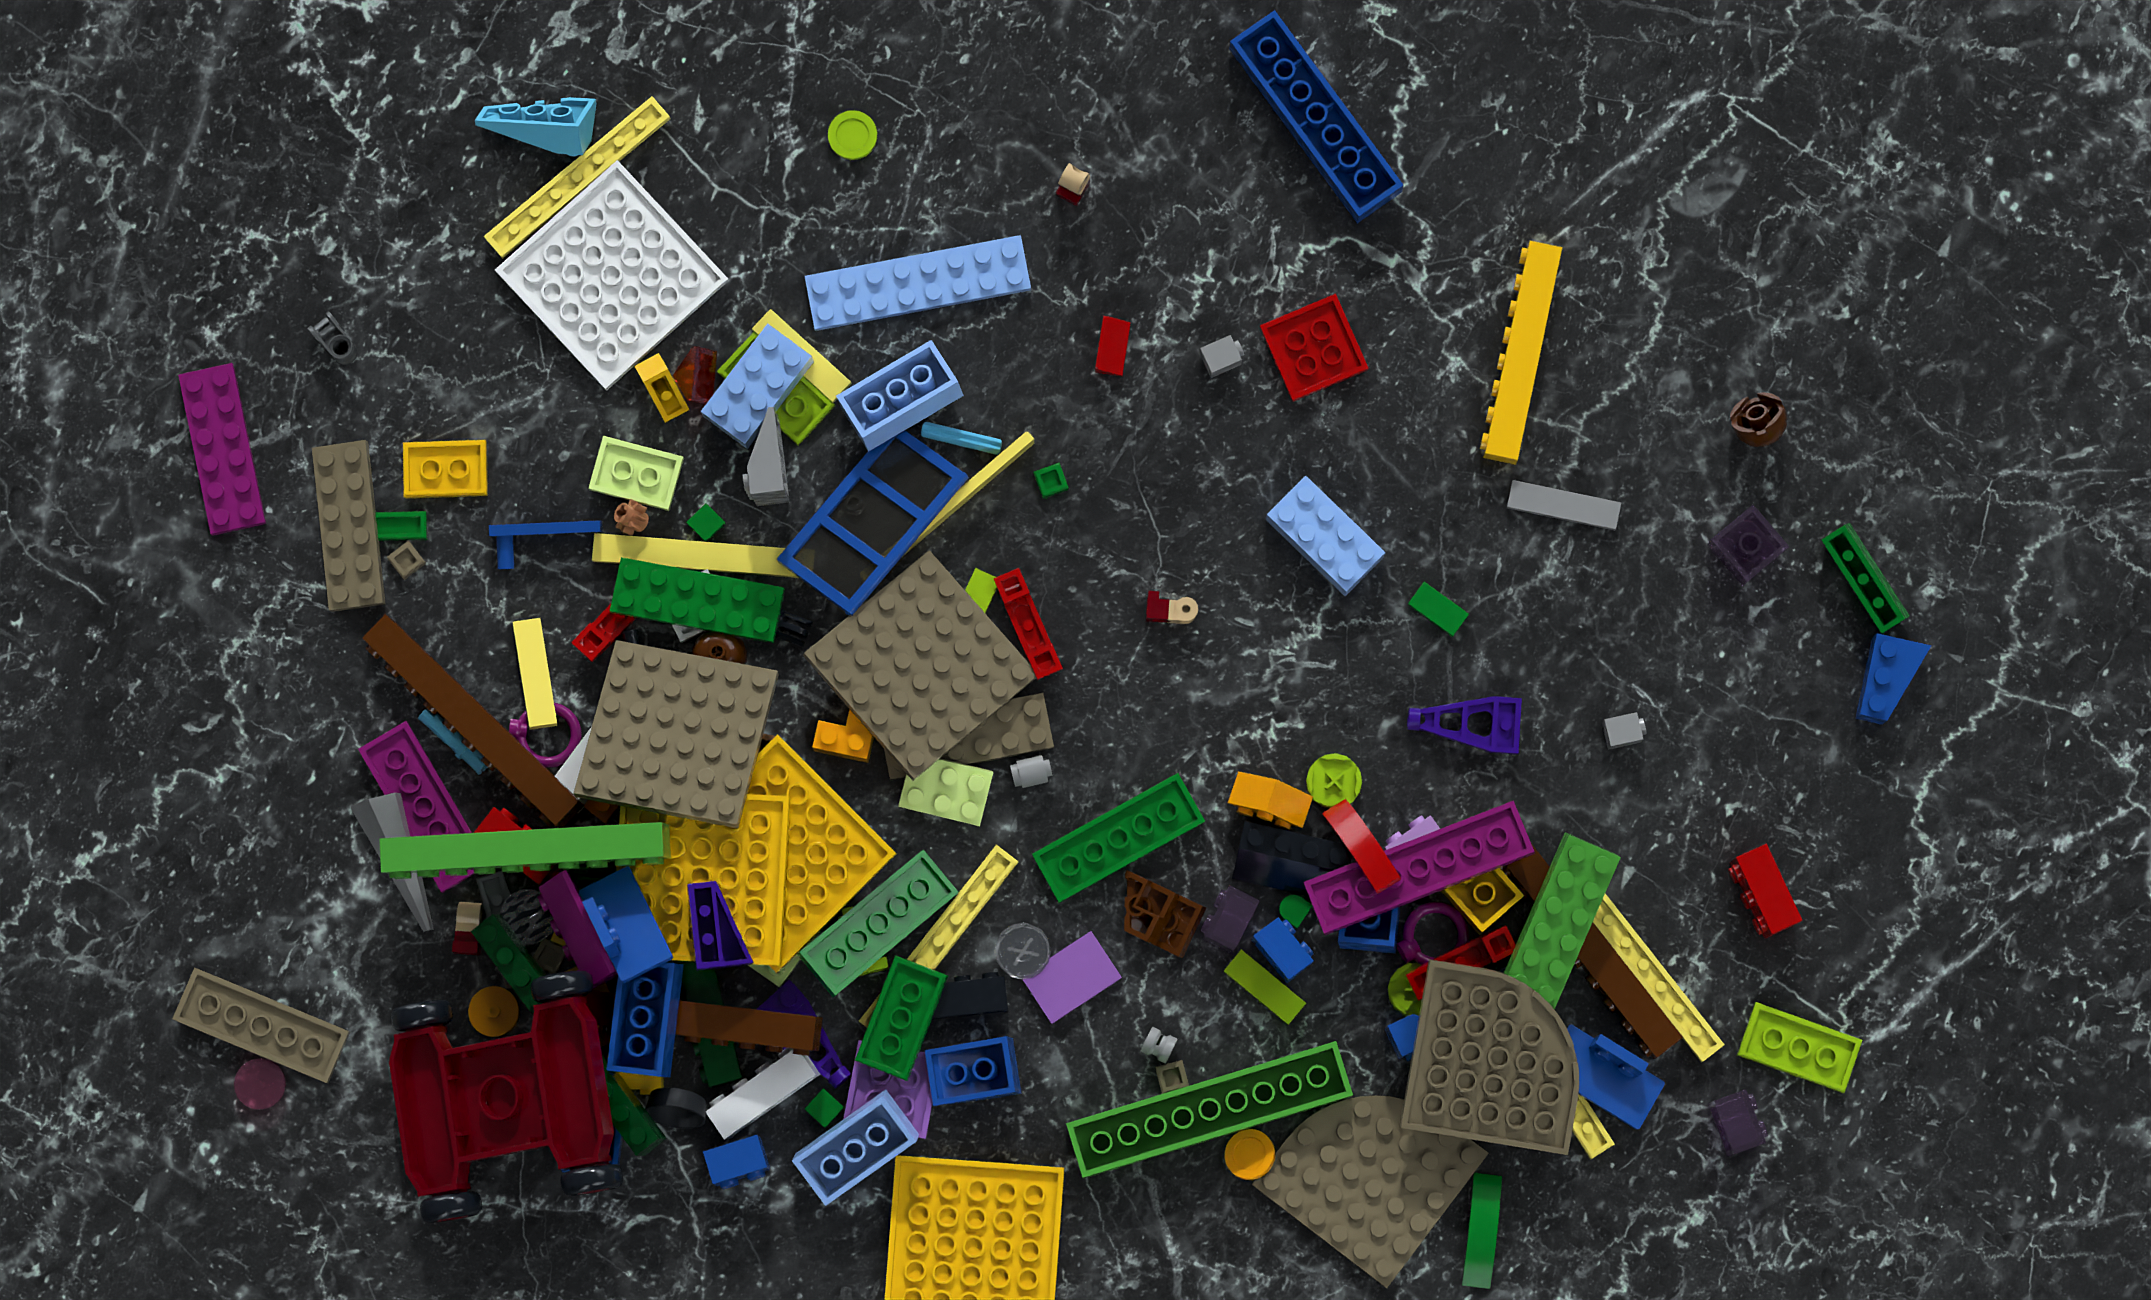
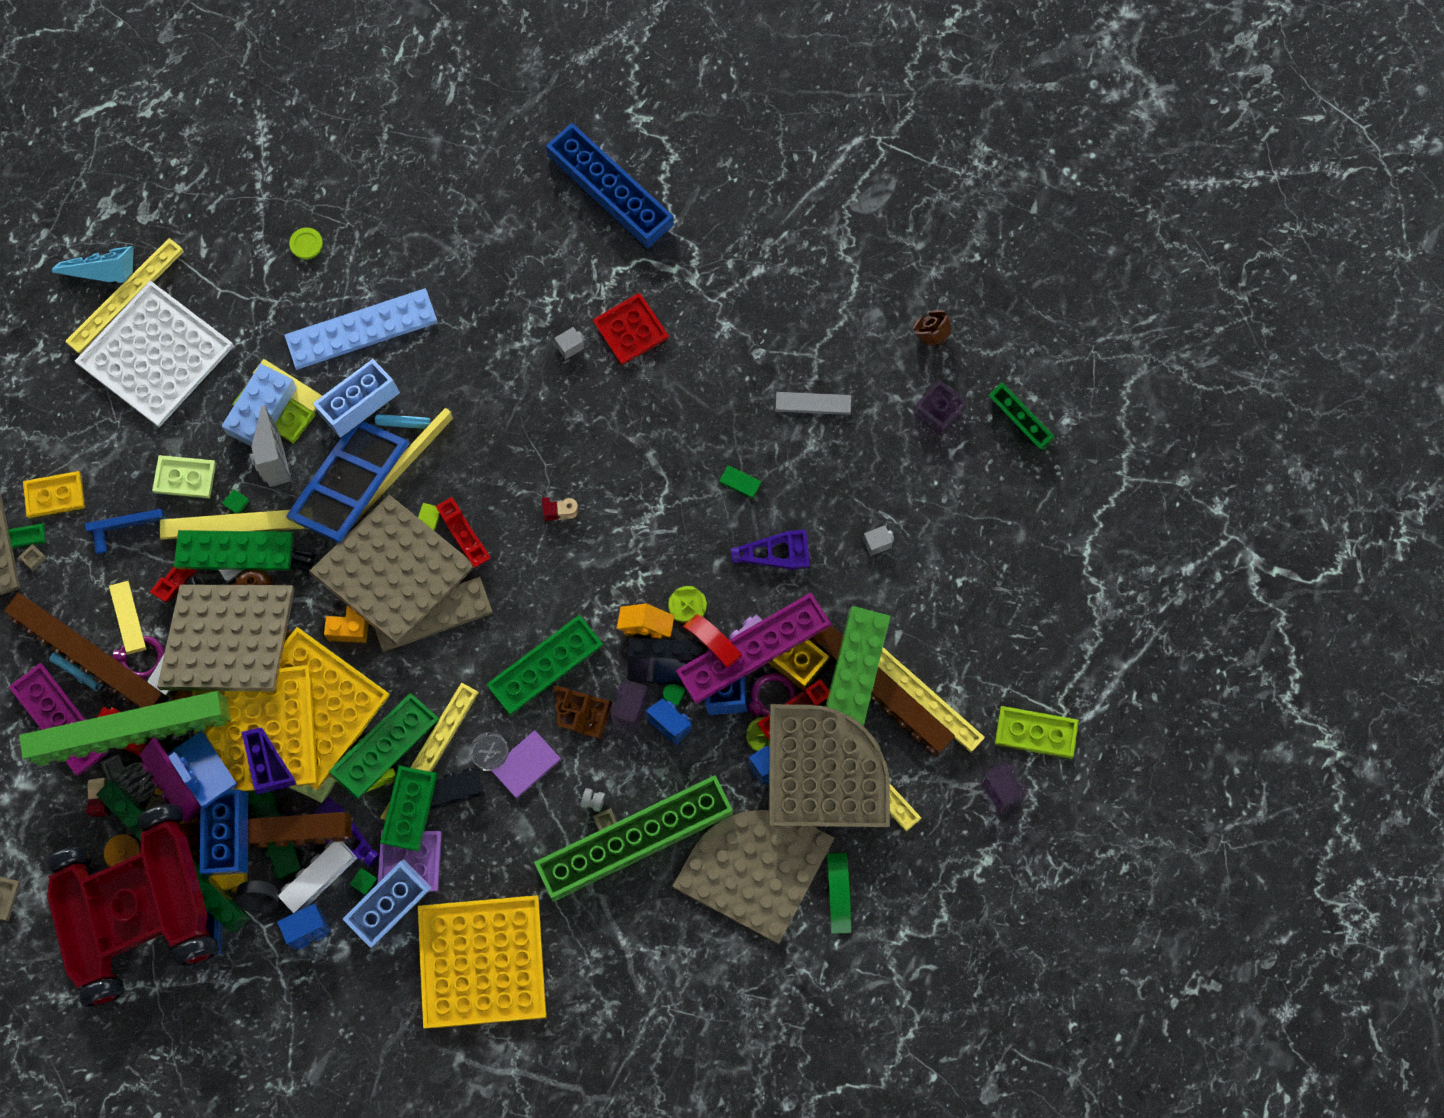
camera: 10 degrees left, 10 degrees down
(386, 818) = (54, 772): light grey wedge -> none
(631, 517) = (183, 505): nougat gear -> none
(661, 387) = (196, 419): yellow slope -> none
(697, 375) = (218, 406): clear red slope -> none
(948, 791) = (422, 651): yellowish green plate -> none
(973, 1071) = (465, 838): blue slope -> none
(1031, 771) = (478, 629): light grey brick -> none
(1051, 480) = (467, 439): green tile -> none
(1073, 184) = (456, 250): tan leg -> none
(1112, 346) = (496, 348): red slope -> none
(1249, 1154) = (667, 865): light orange piece -> none
(1264, 987) = (661, 749): lime tile -> none
(1325, 536) = (656, 445): light blue brick -> none
(1522, 352) = (769, 311): yellow brick -> none
(1614, 1078) = (913, 771): blue bracket -> none
(1764, 891) = (993, 629): red brick -> none
(1887, 675) = (1049, 474): blue wedge -> none

